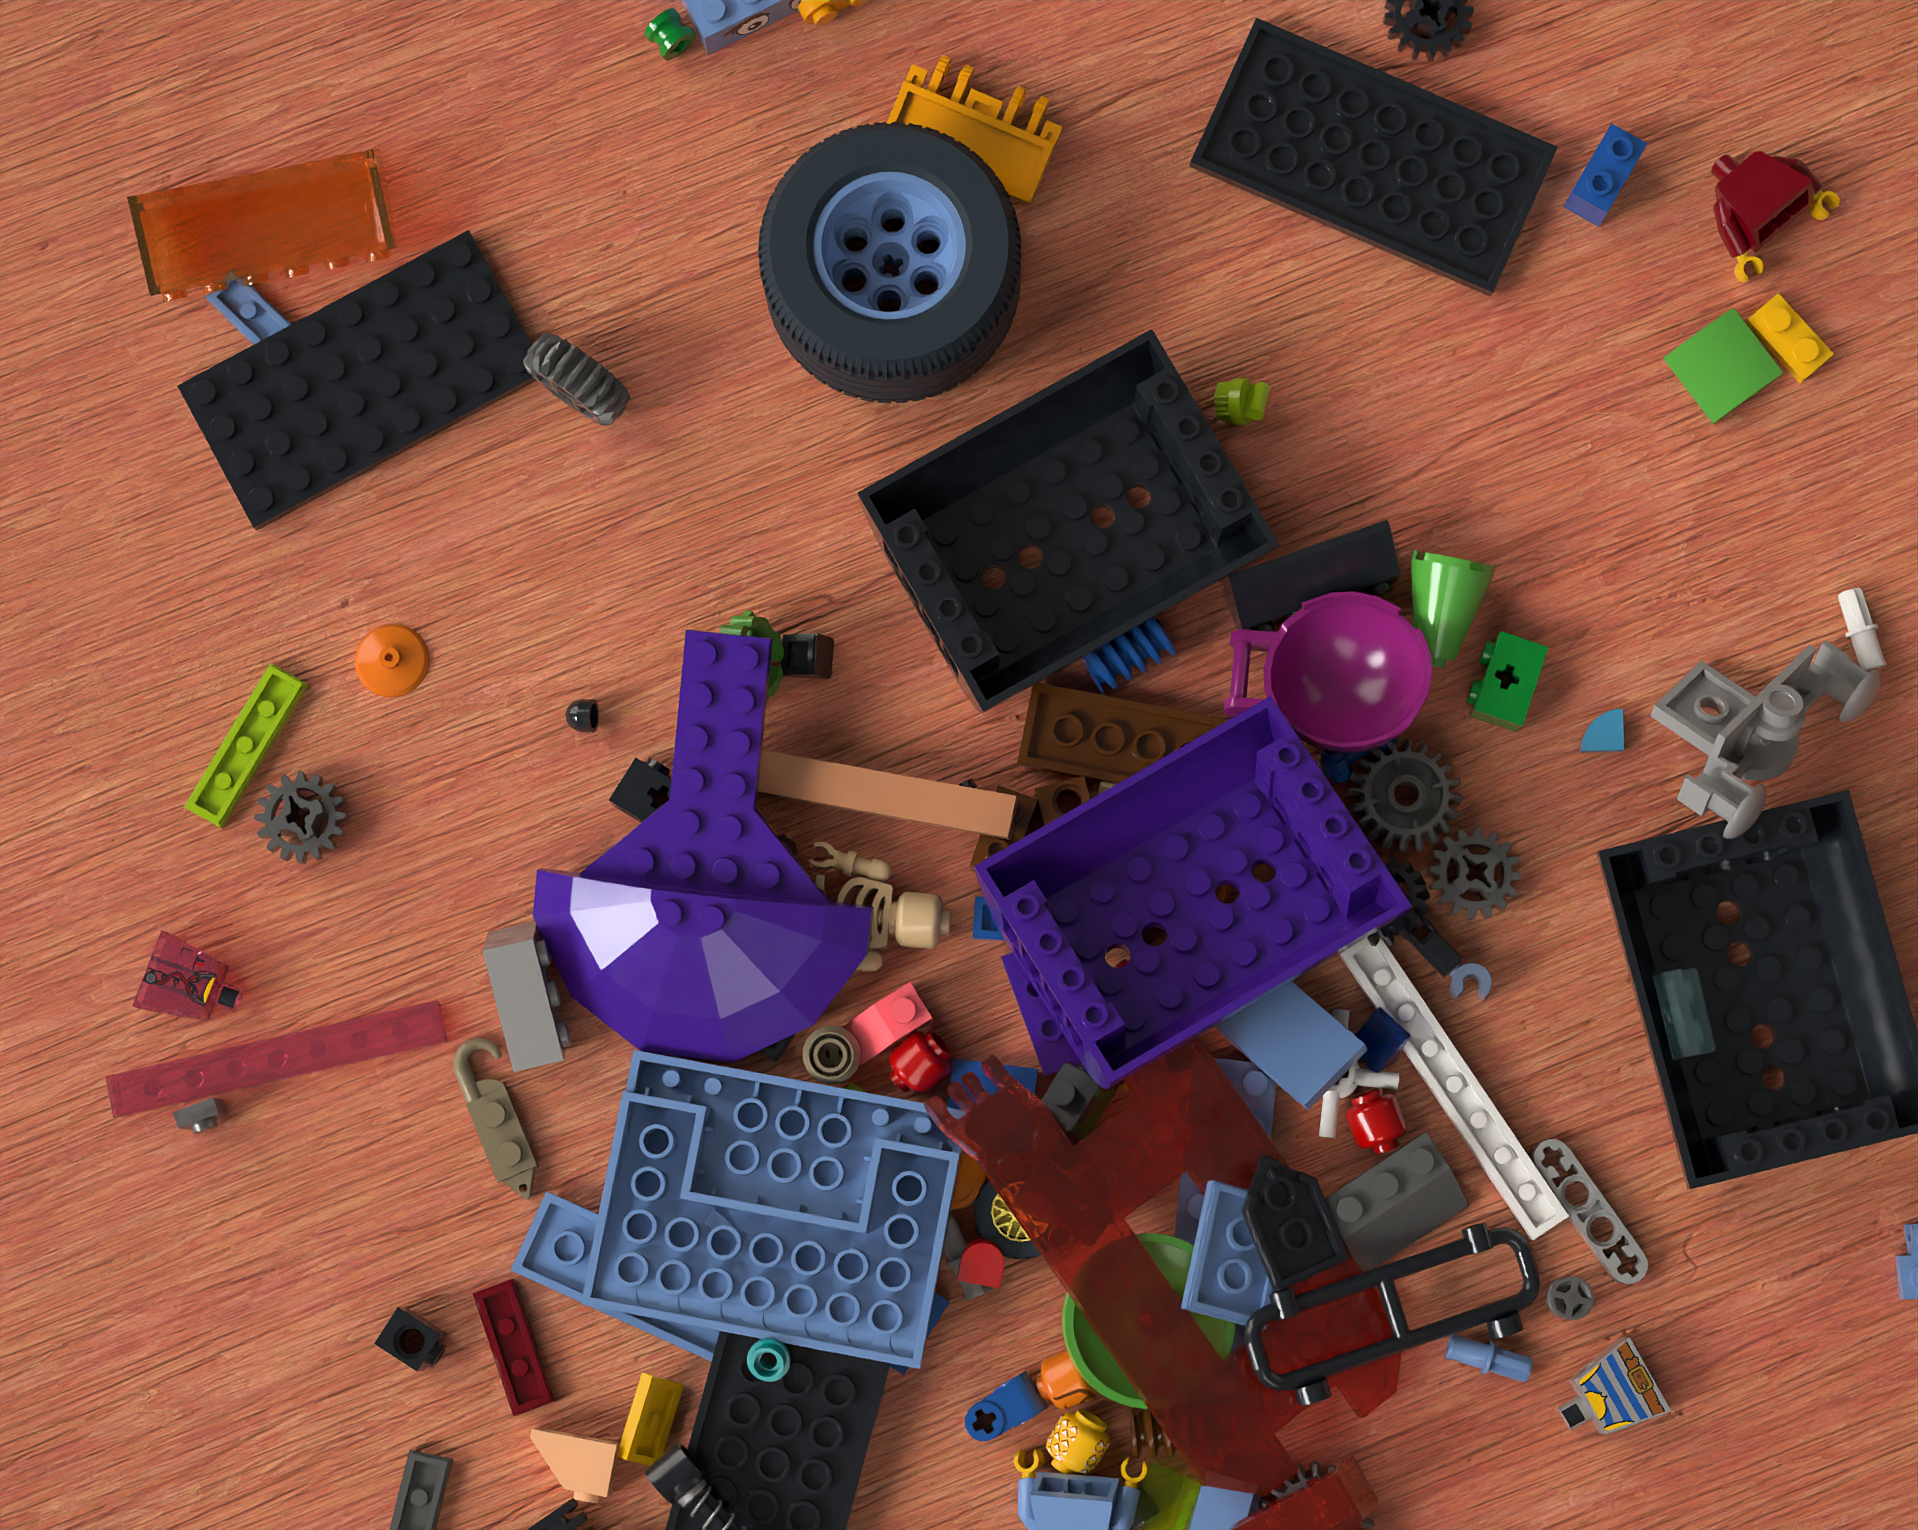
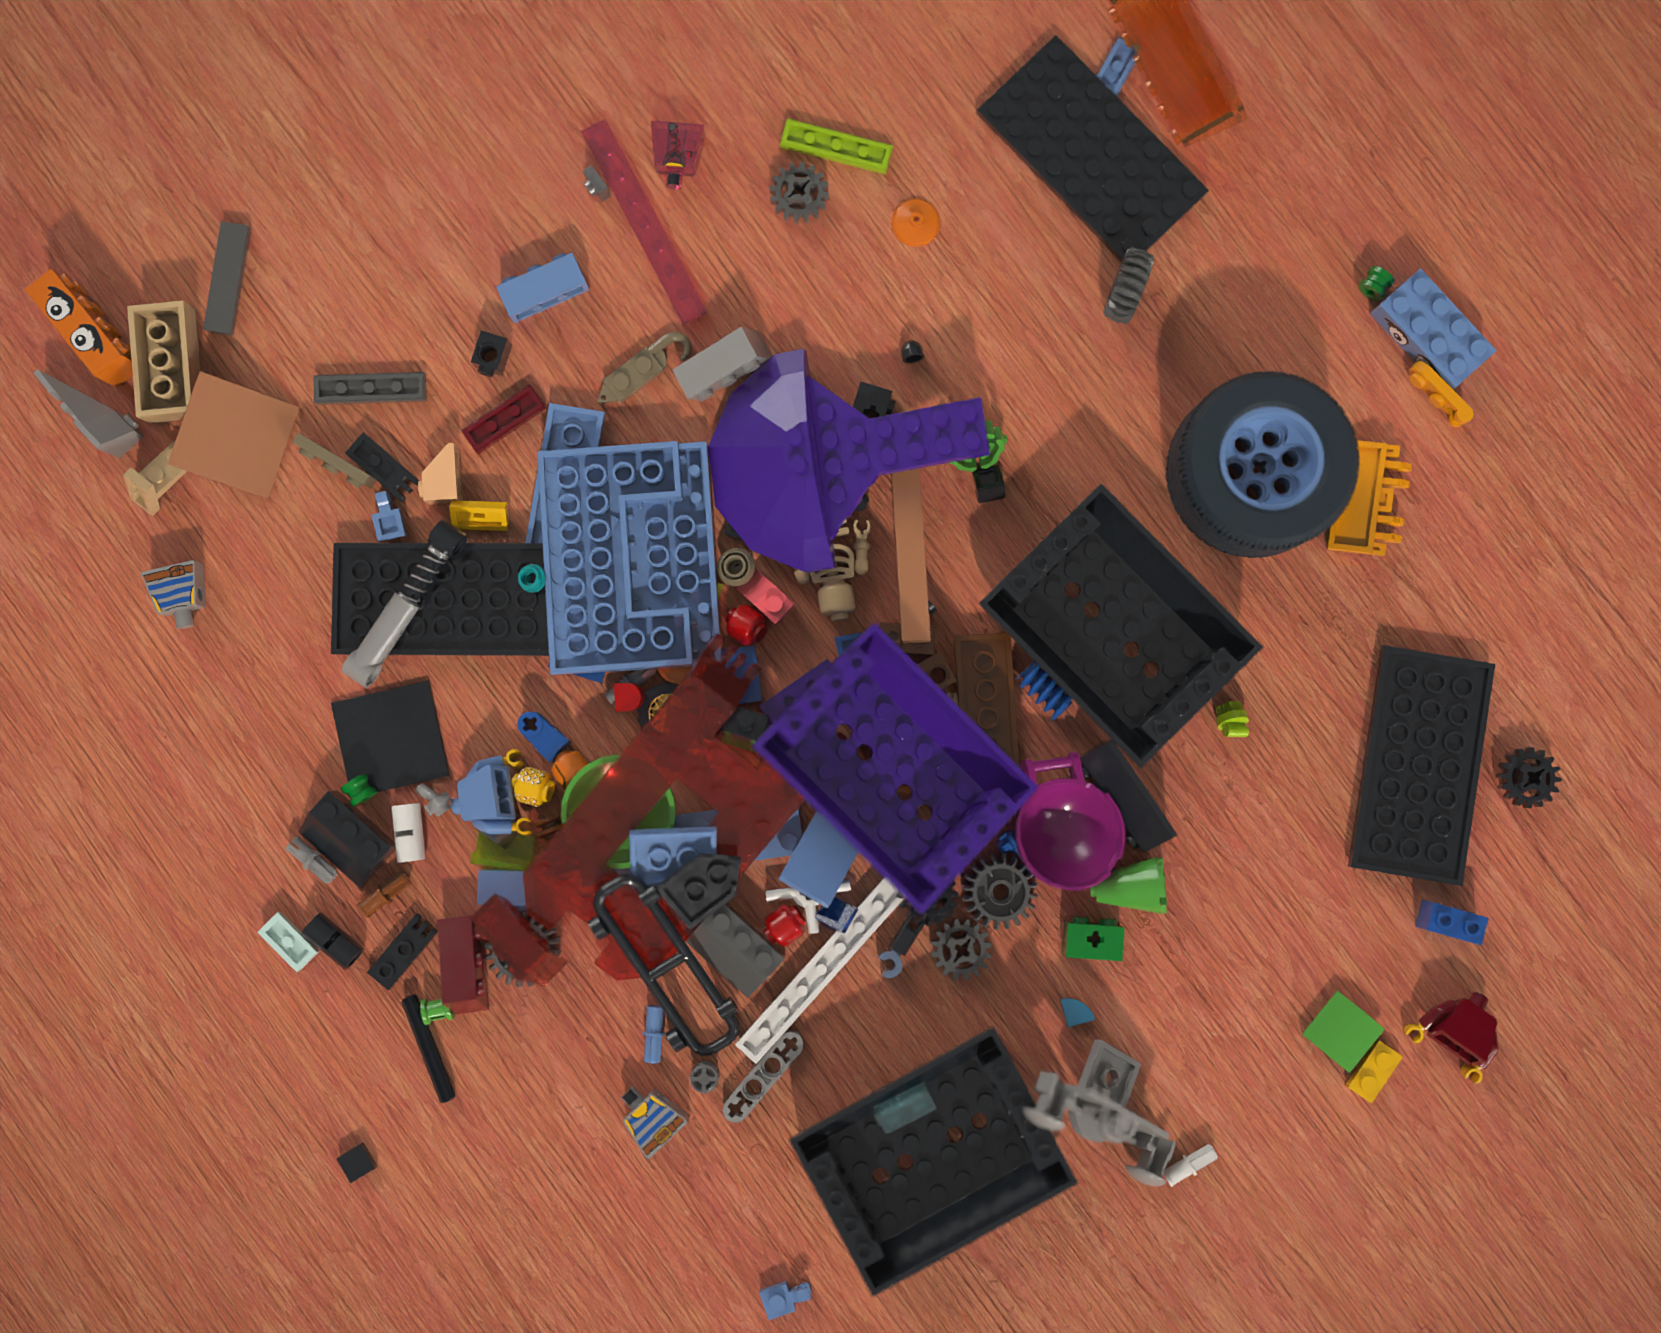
camera: 70 degrees right, 5 degrees up
(332, 1235) = (542, 287): none -> medium blue brick

